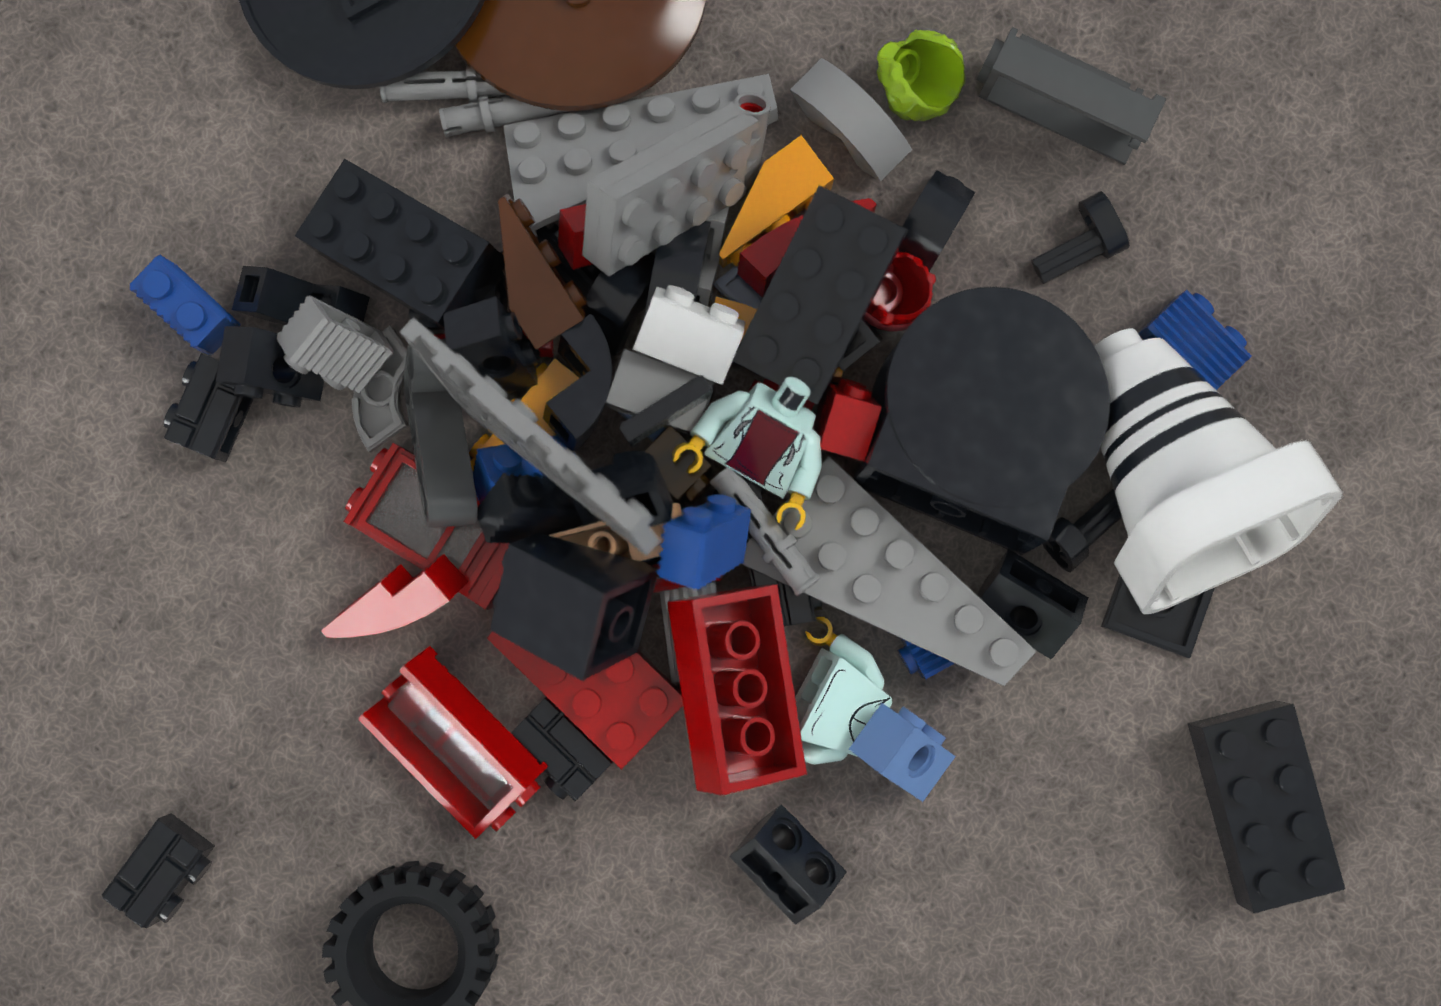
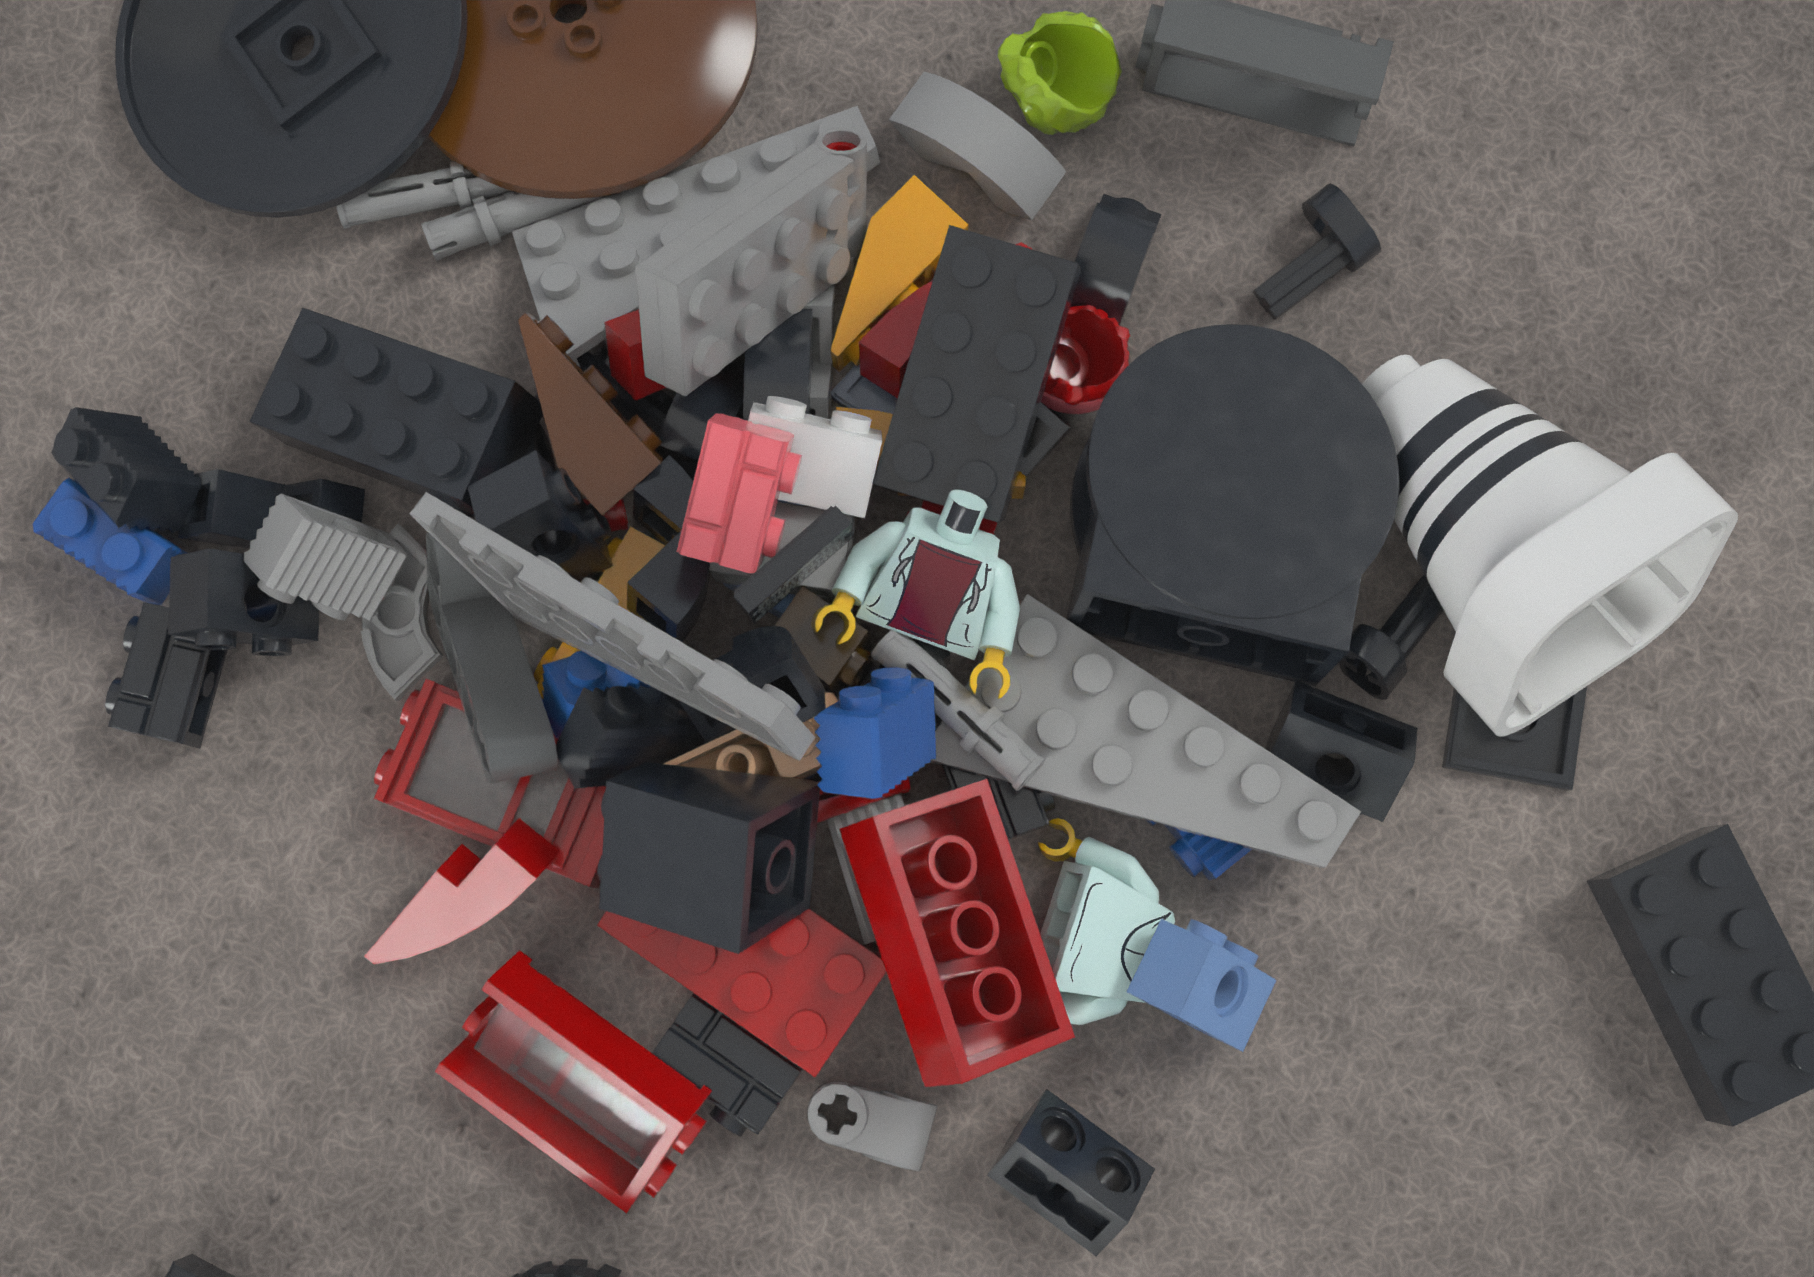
camera: 10 degrees left, 5 degrees down
(201, 255) = (126, 469): none -> black brick
(634, 354) = (737, 494): none -> coral brick
(662, 811) = (884, 1125): none -> light grey piece
(847, 419) = (1044, 539): red brick -> none
(1199, 337) = (1500, 352): blue brick -> none

